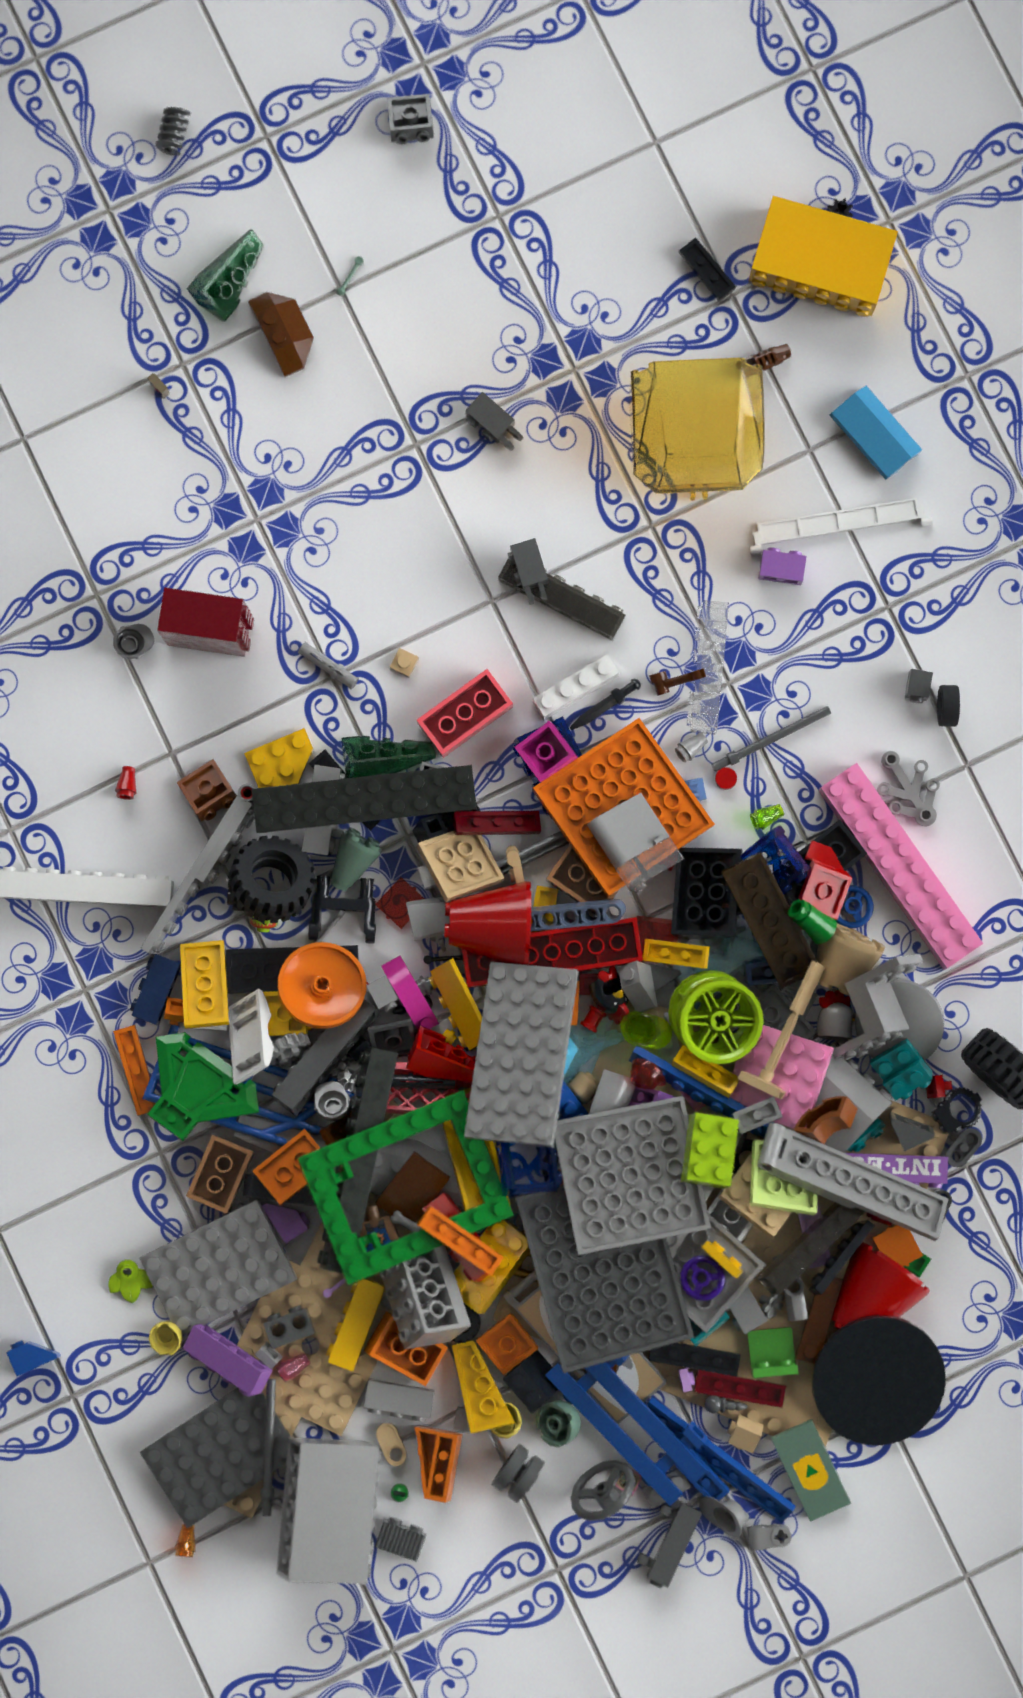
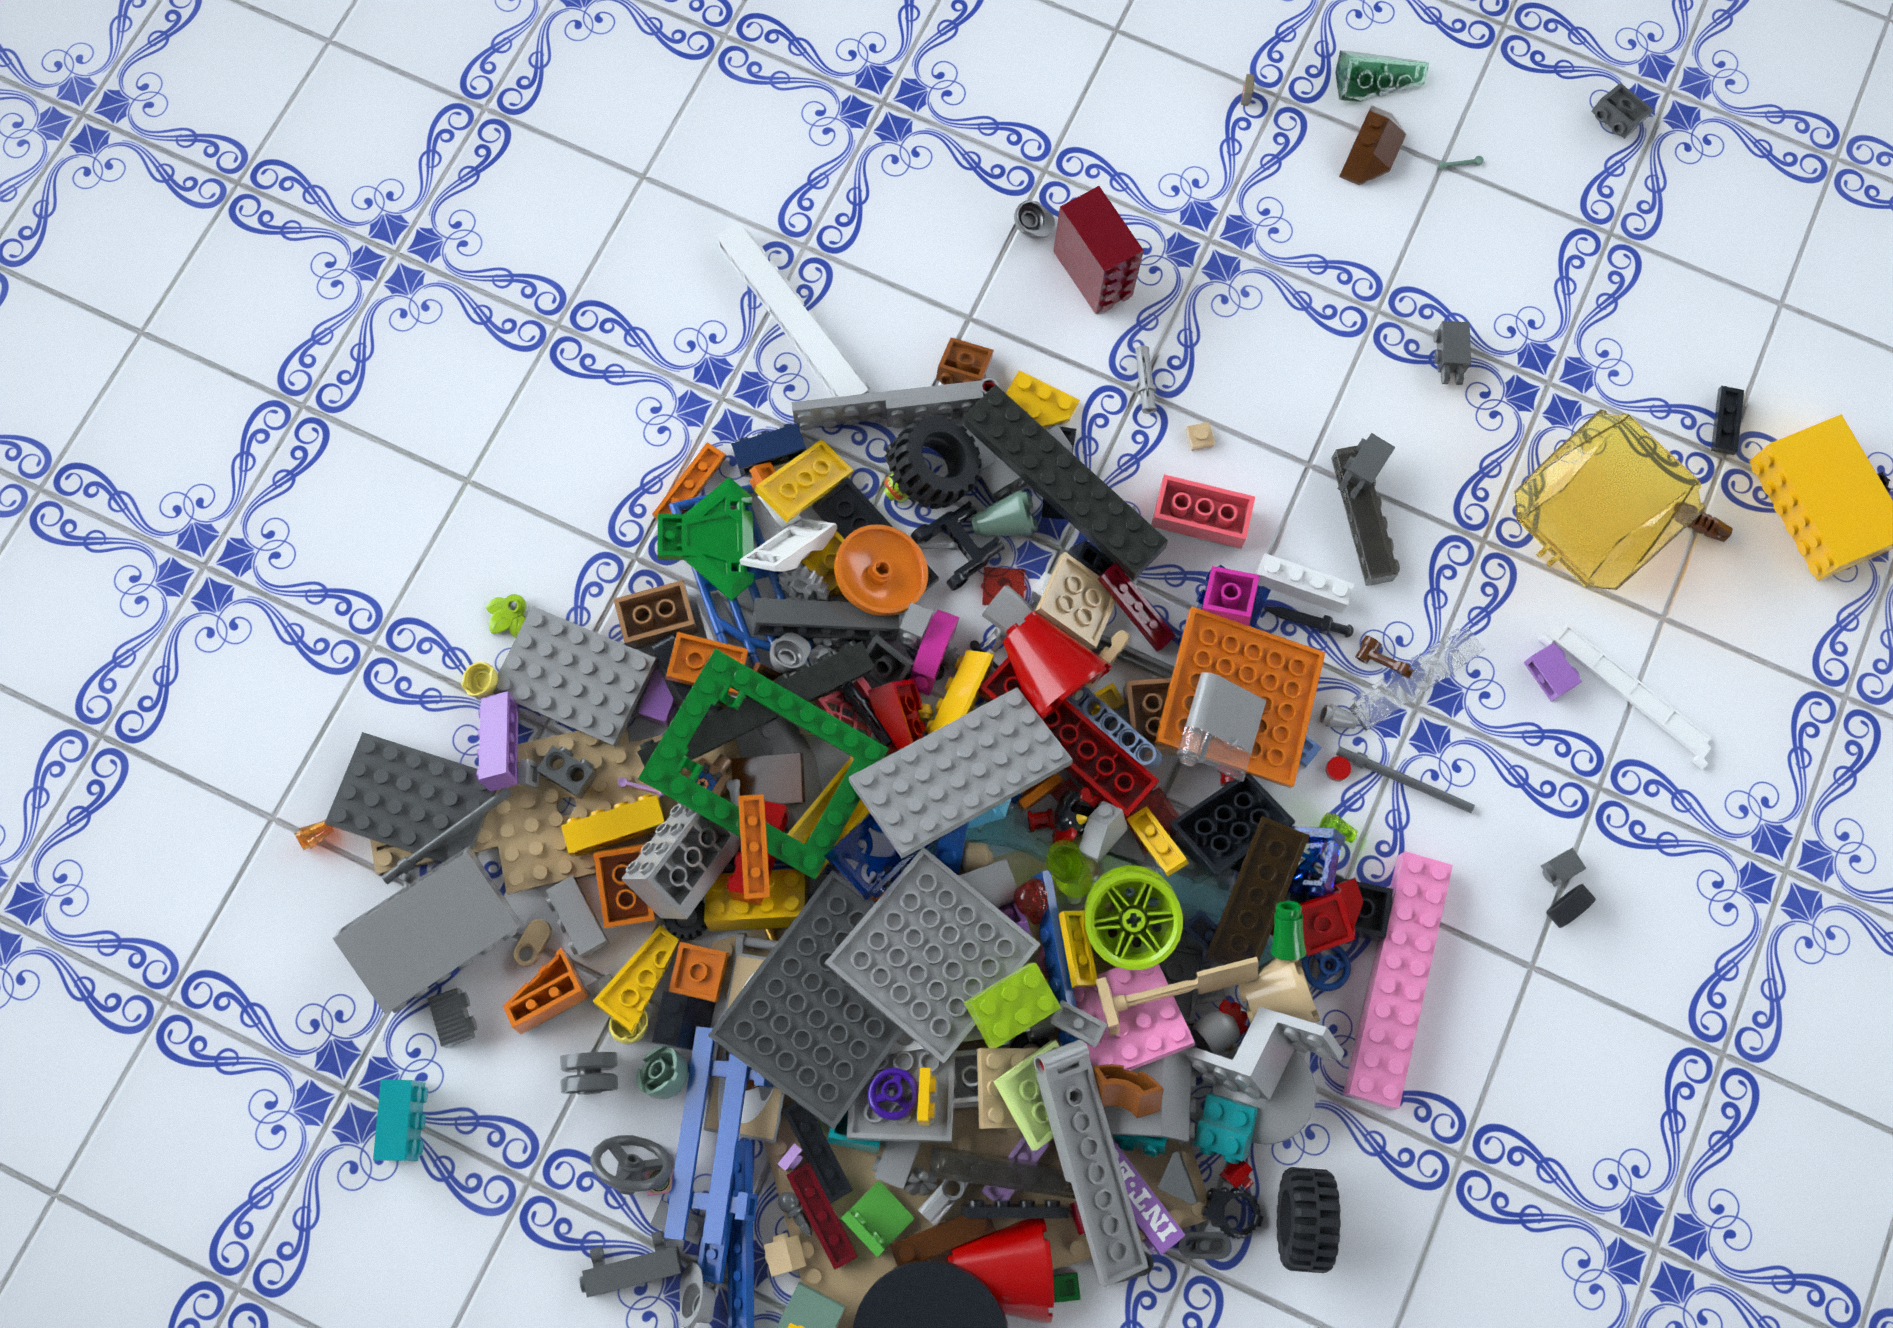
camera: 45 degrees right, 10 degrees down
(29, 1356) = (379, 583): blue slope -> none
(126, 784) = (915, 302): red cone -> none
(292, 1367) = (532, 801): clear pink cone -> none
(375, 757) = (1102, 463): clear green wedge -> none
(400, 1488) = (499, 982): green hinge -> none
(447, 1627) = (400, 1120): none -> teal brick
(875, 432) = (1732, 658): dark azure slope -> none
(898, 1245) = (1069, 1257): orange piece -> none
(910, 791) = (1467, 935): light grey plant -> none

